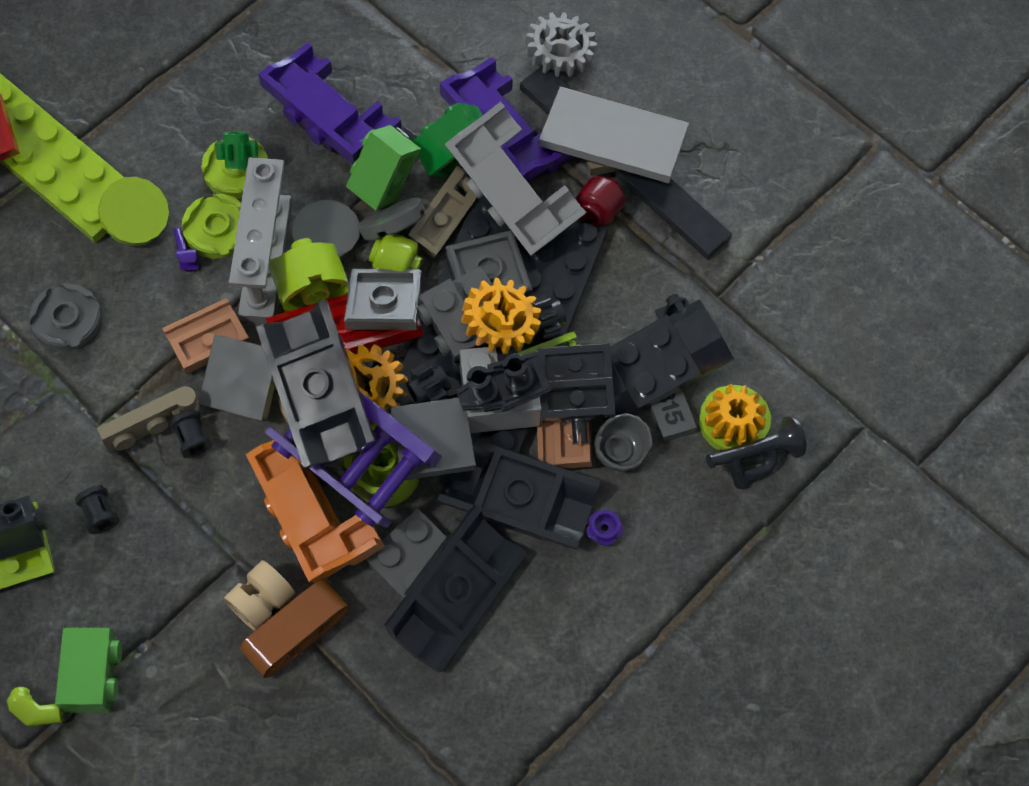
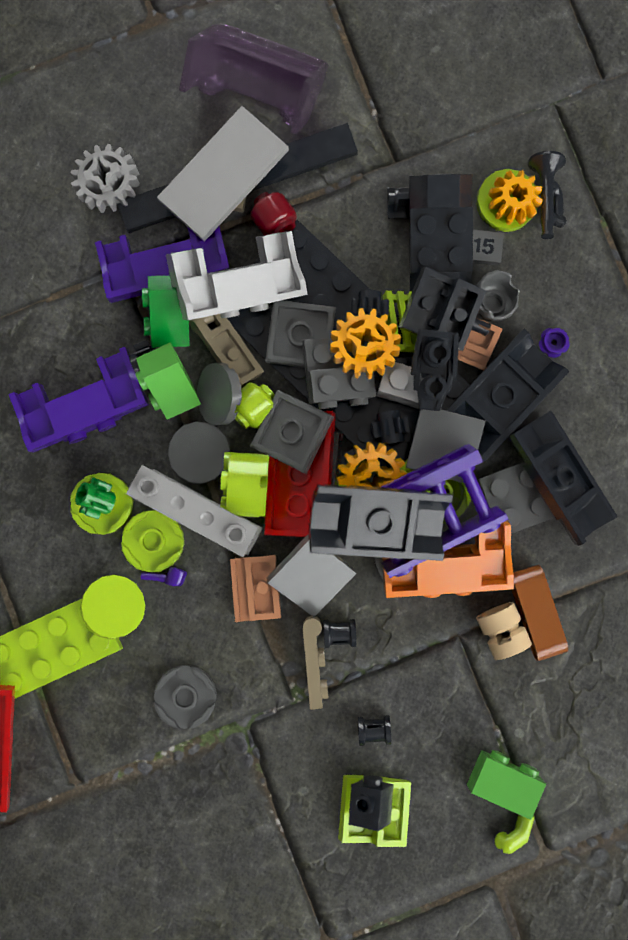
camera: 60 degrees left, 20 degrees up
(740, 125) = (256, 68): none -> clear purple windscreen

